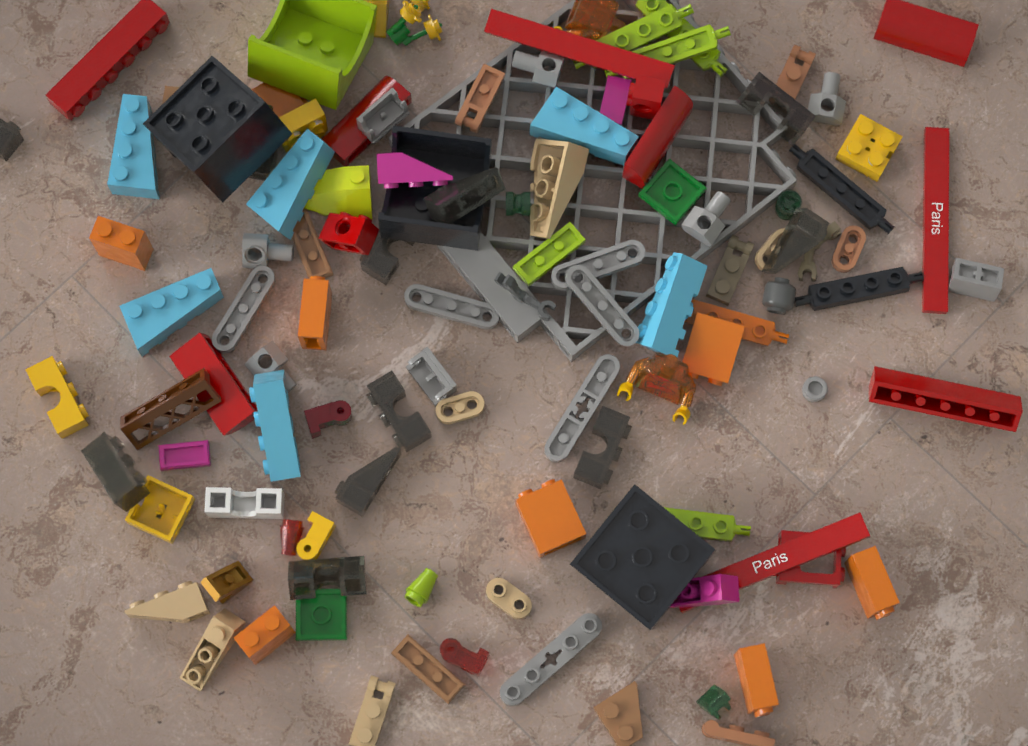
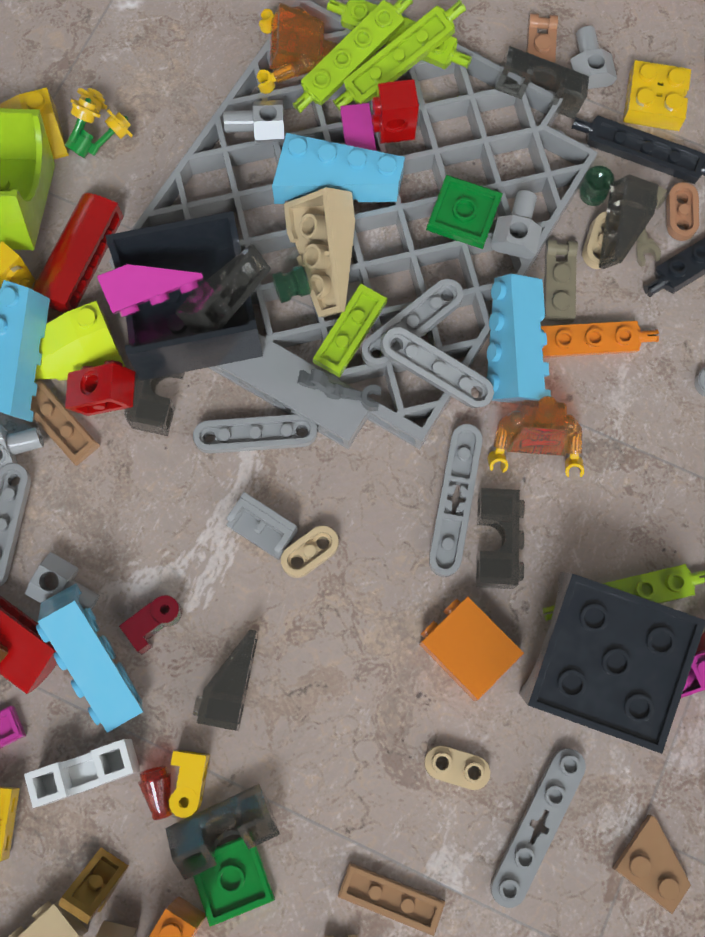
camera: 20 degrees left, 0 degrees up
(315, 313) = (91, 500): orange brick -> none
(382, 116) = (86, 241): light grey hinge -> none
(409, 430) = (213, 568): clear smoke arch -> none
(421, 588) = (345, 796): lime cone -> none
(463, 658) = (431, 869): clear red leg -> none
(480, 97) = (201, 178): nougat plate -> none
(576, 47) = (288, 83): red tile -> none
(658, 137) = (425, 154): red brick -> none
(712, 348) = (582, 373): orange brick -> none
(779, 296) = (629, 289): dark grey head -> none

